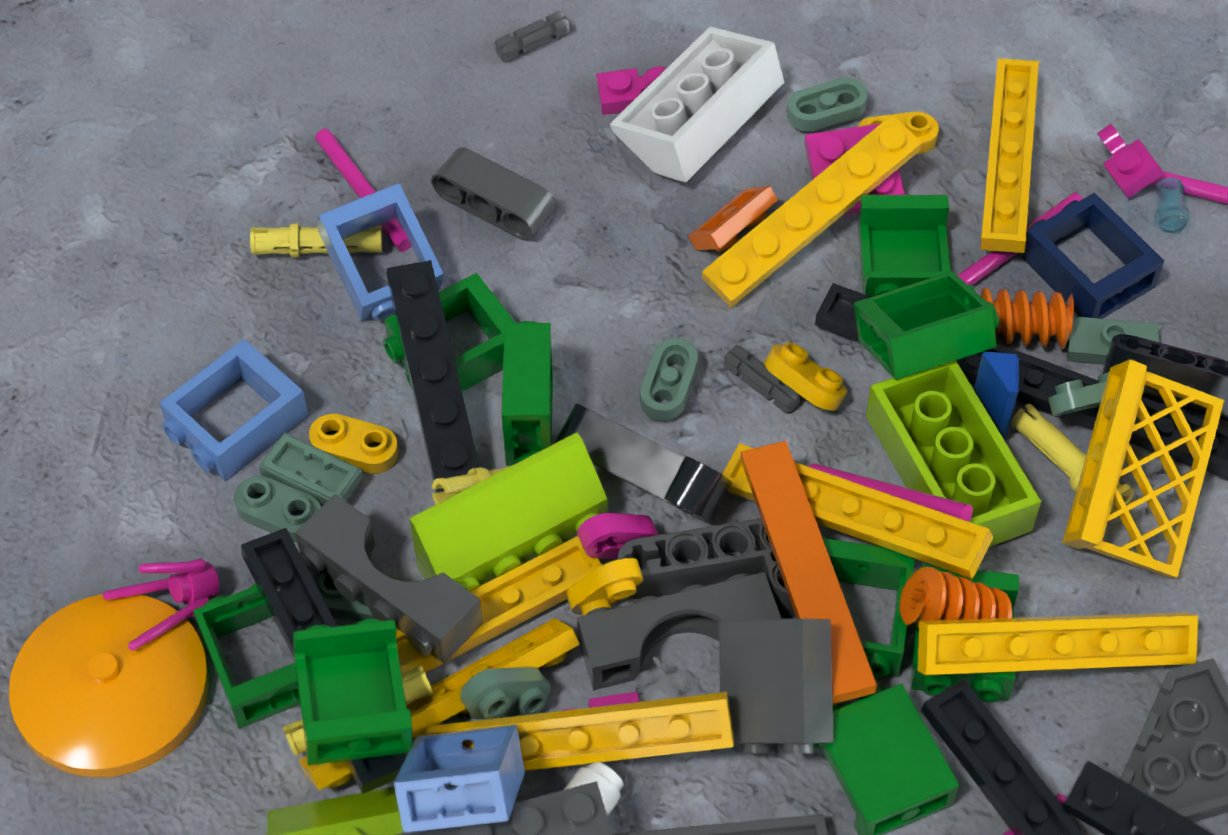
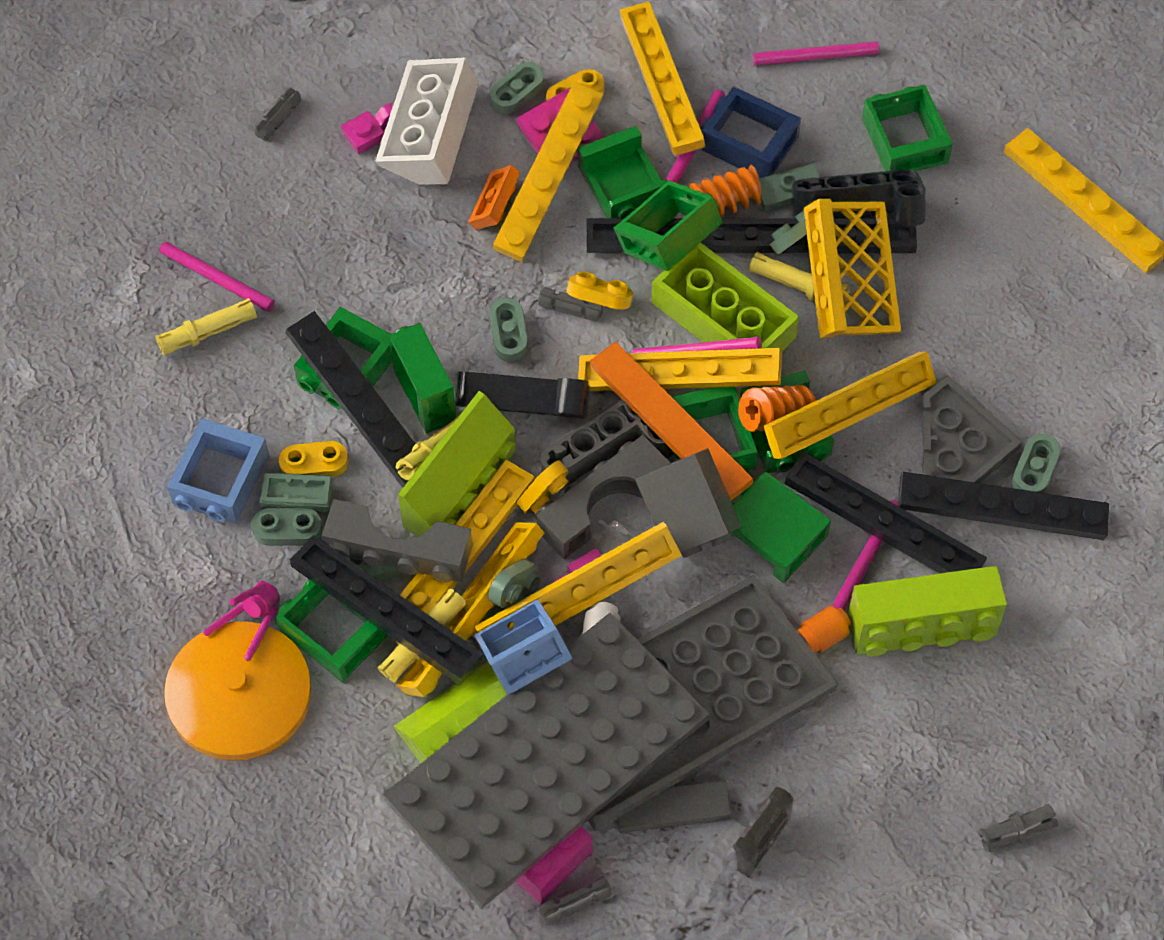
camera: 25 degrees left, 5 degrees up
(351, 692) = (422, 623): green panel -> none
(360, 216) = (221, 317): medium blue window -> none
(493, 193) = (315, 243): dark grey beam -> none
(608, 532) = (528, 450): dark pink beam -> none
(998, 387) = (736, 248): blue slope -> none
(1131, 165) = (744, 56): dark pink plate -> none
(1171, 211) = (788, 81): clear light blue pin -> none

